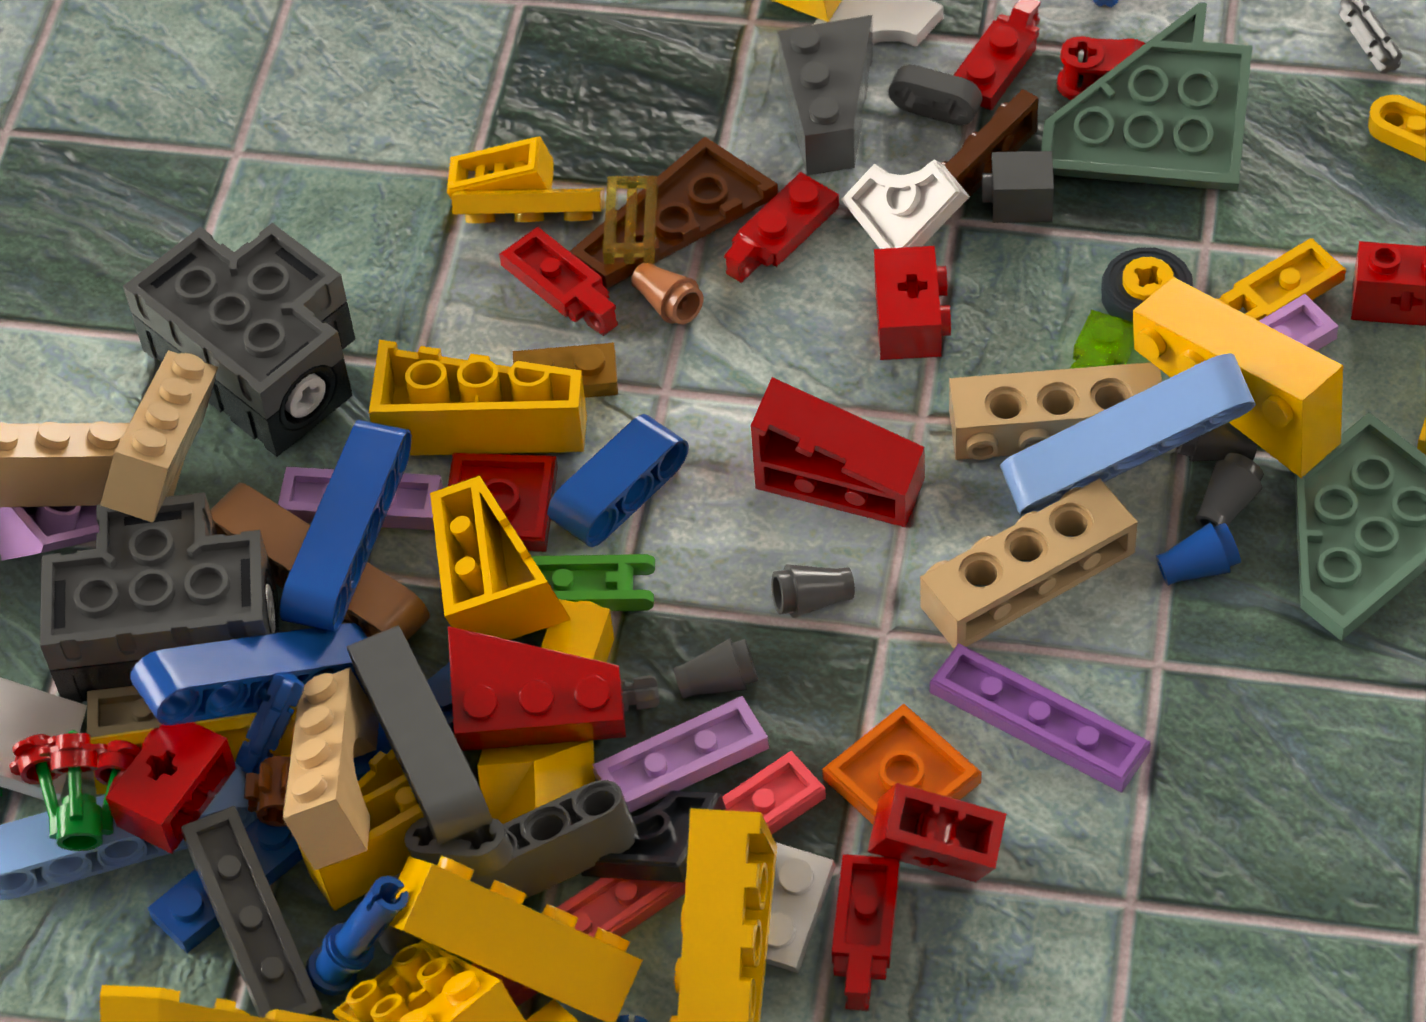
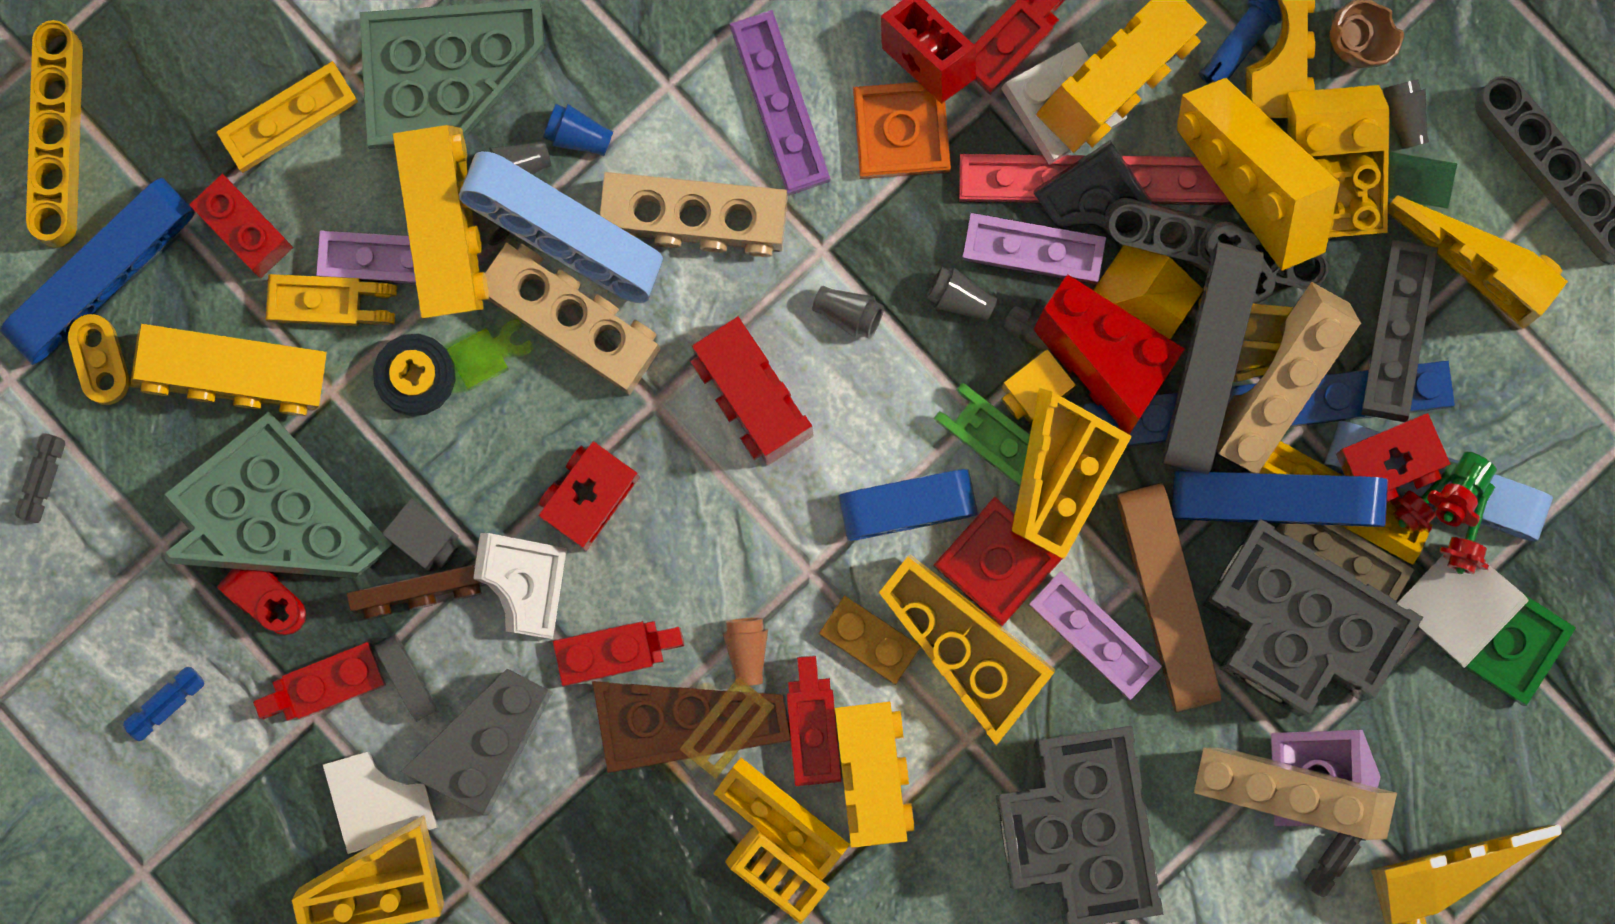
camera: 140 degrees left, 30 degrees up
(159, 436) = (1230, 733): tan brick -> none
(268, 790) = (1327, 405): reddish brown gear -> none
(270, 721) = (1296, 459): blue axle -> none
(345, 526) = (1134, 587): blue beam -> none
(350, 945) = (1353, 251): blue pin -> none
(469, 266) = (873, 774): none -> yellow wedge
(1307, 176) = (227, 369): none -> yellow wedge

